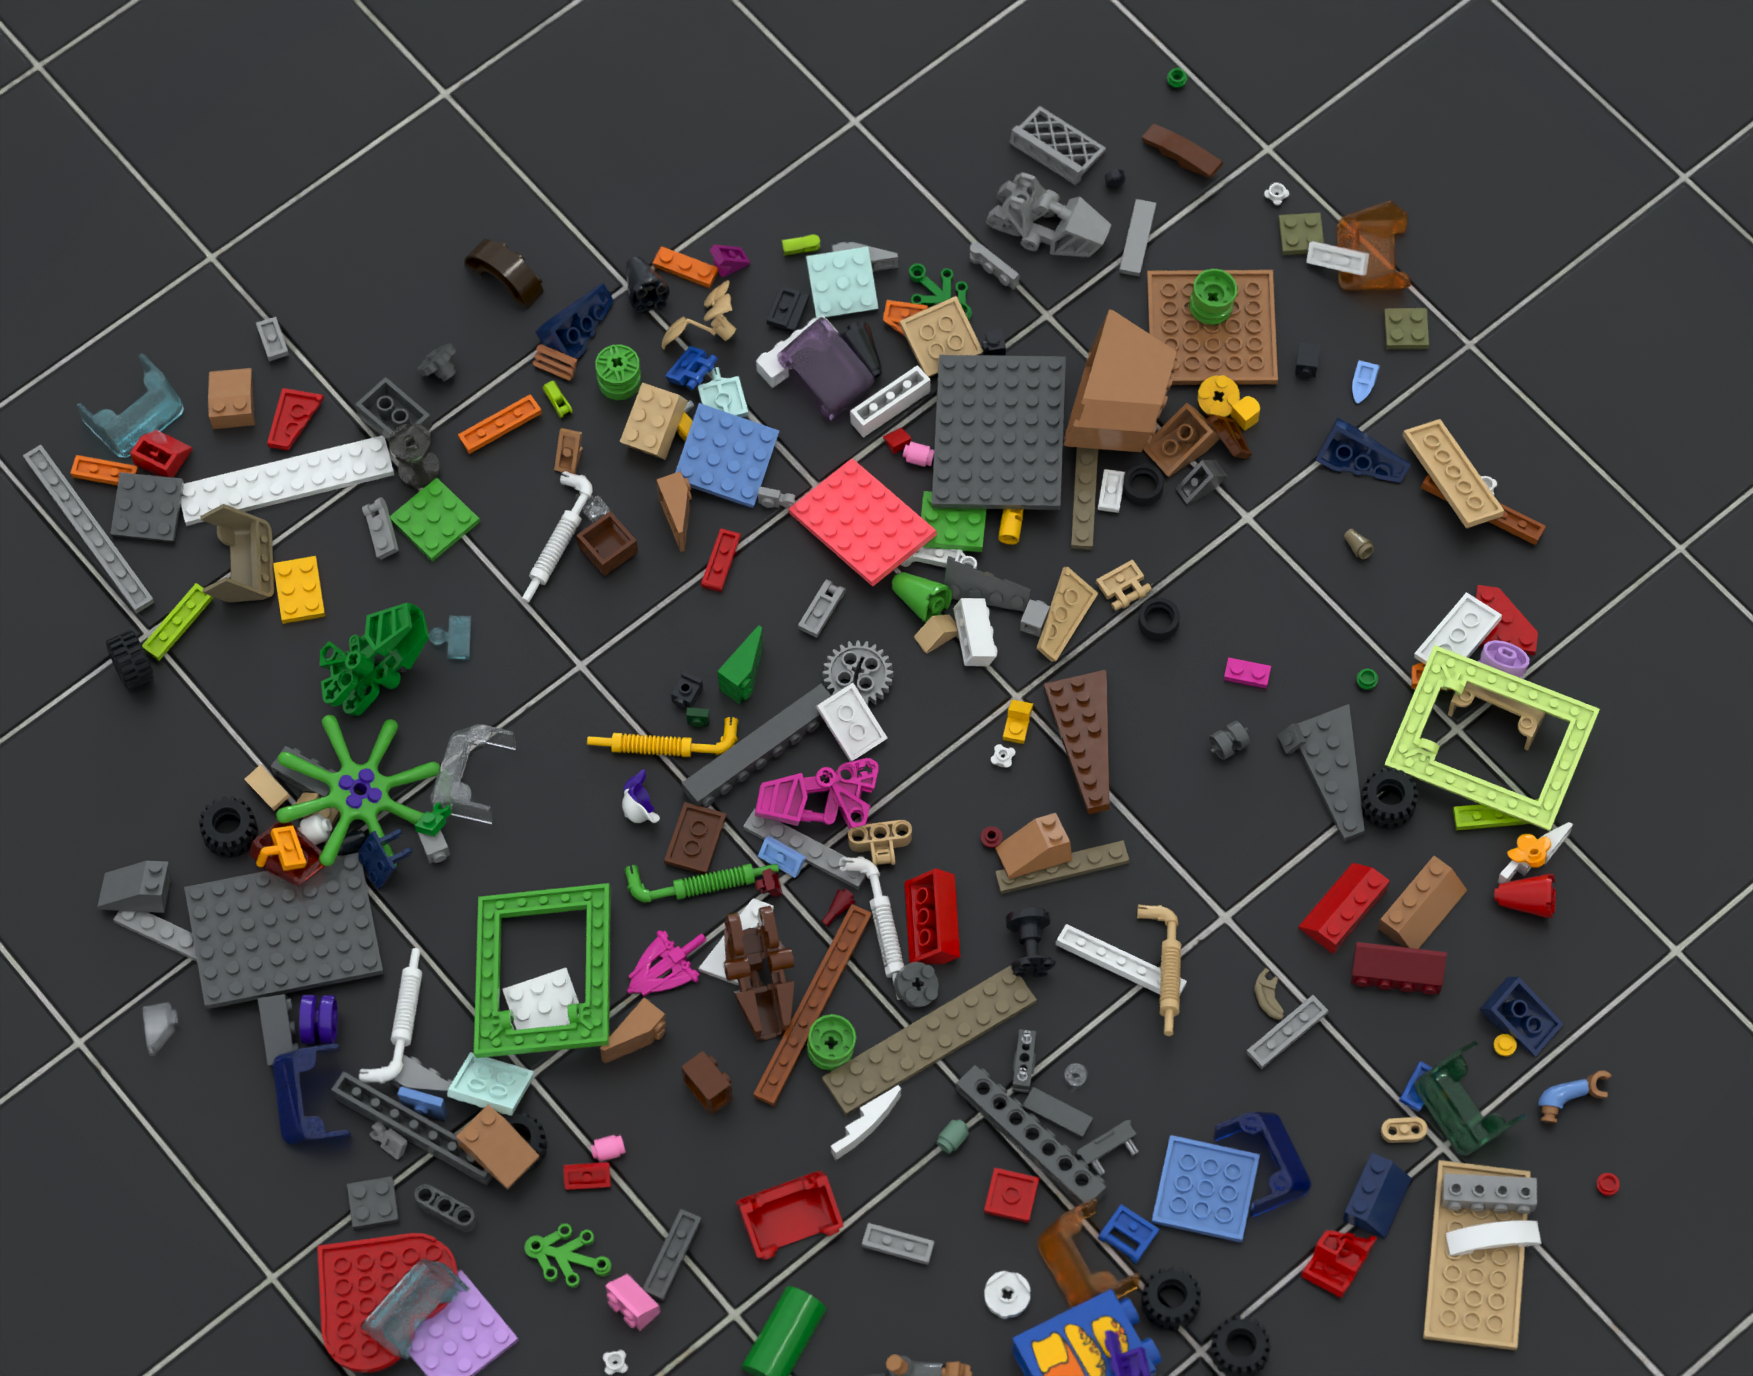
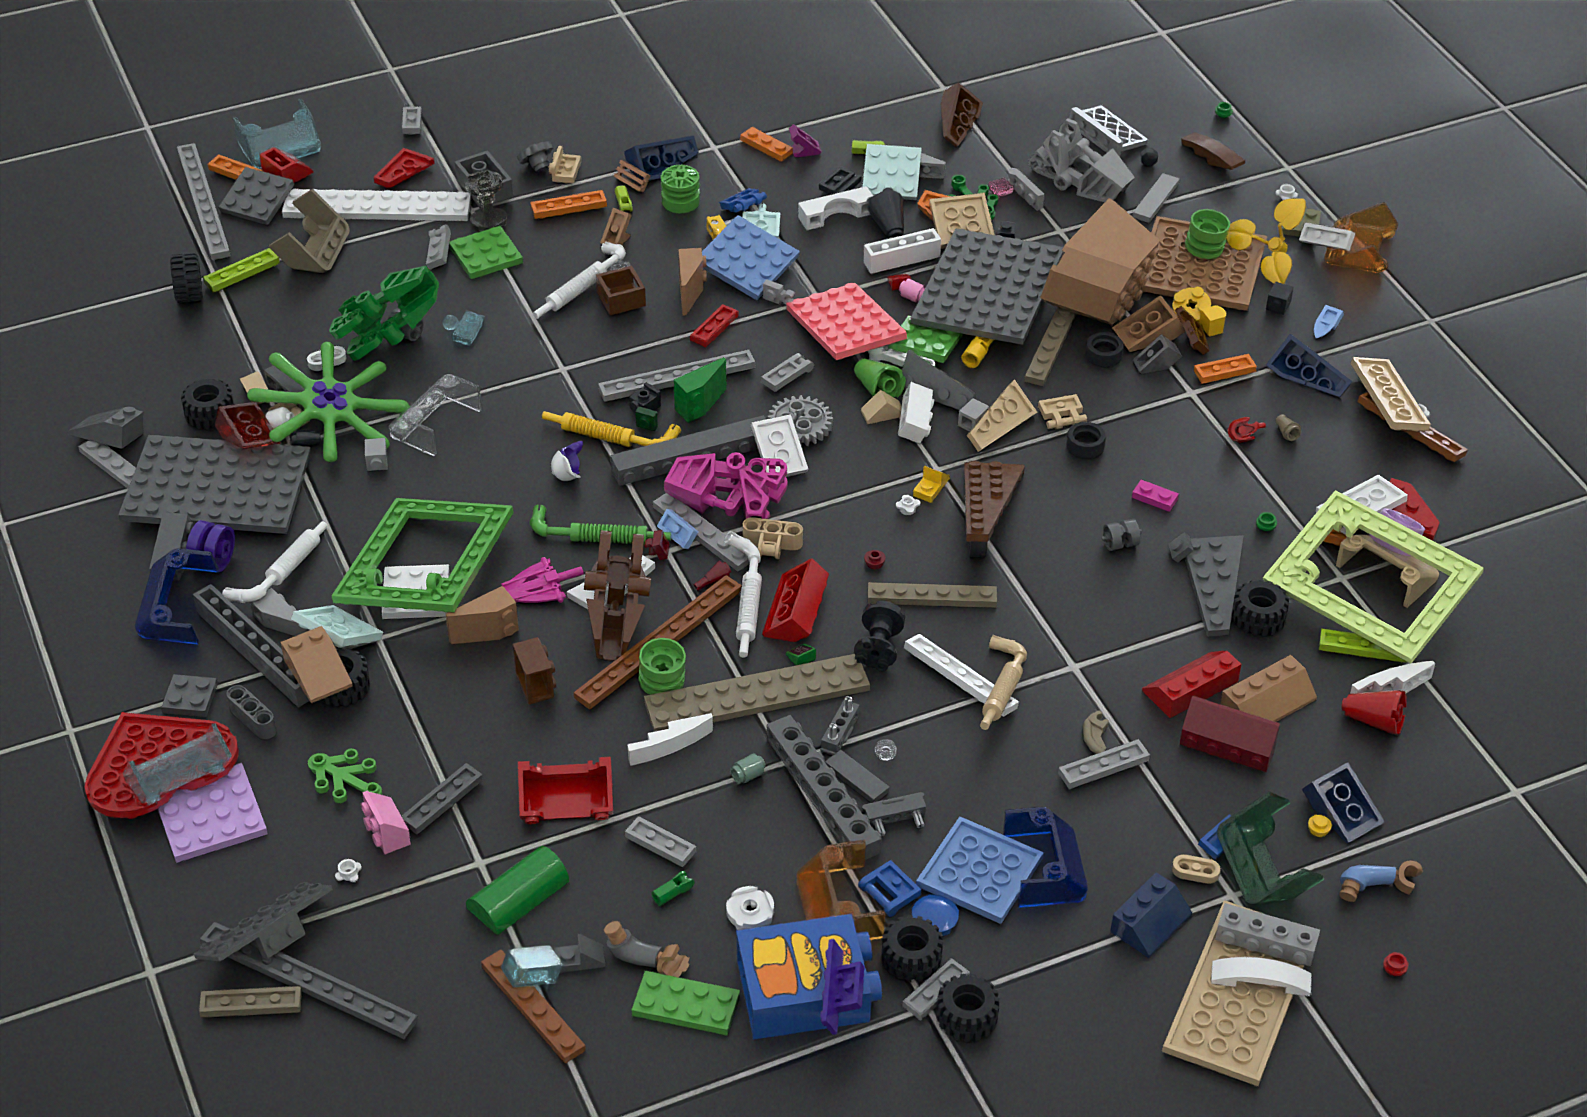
camera: 15 degrees right, 20 degrees down
(159, 1025) = (73, 524): clear slope -> none
(231, 398) = (358, 149): medium nougat slope -> none
(287, 848) = (244, 416): light orange plate -> none
(299, 589) = (351, 272): yellow plate -> none
(316, 724) = (314, 359): none -> white plate
(376, 861) = (320, 449): dark blue plate -> none
(391, 1141) = (229, 651): light grey plate -> none
(423, 1103) = (269, 622): medium blue plate -> none
(433, 822) = (379, 433): green plate -> none
(475, 368) = (564, 166): none -> tan bracket
(508, 268) = (621, 111): dark brown brick -> none
(587, 1175) = (392, 718): red plate -> none
(607, 1148) = (421, 702): bright pink brick -> none
(645, 286) = (727, 146): black cone -> none
(653, 421) = (695, 219): tan brick -> none
(695, 838) = (606, 500): reddish brown plate -> none
(707, 645) = (665, 377): none -> light grey plate
(720, 304) = (779, 179): tan plant -> none
(827, 367) = (856, 214): clear purple windscreen -> none
(885, 161) = (958, 112): none -> reddish brown wedge
(925, 1294) = (672, 888): none -> green bar
(928, 980) = (768, 637): dark grey plate -> none
(957, 979) = (802, 654): none -> green slope
(966, 269) = (1000, 187): none -> clear pink plate
(1011, 1195) = (786, 829): red plate -> none
(1035, 847) = (913, 569): medium nougat slope -> none
(1111, 491) = (1073, 348): white plate -> none
(1178, 1249) = (939, 910): none -> blue dish
(1202, 1331) = (924, 998): none -> light grey tile
(1275, 477) = (1225, 368): none -> orange plate
(1299, 259) = (1278, 266): none -> yellow plant
(1310, 562) = (1240, 429): none -> red piece
(1337, 1261) = (1094, 961): red slope -> none
(1406, 328) = (1375, 298): olive plate -> none
(1530, 850) = (1387, 671): light orange plate -> none

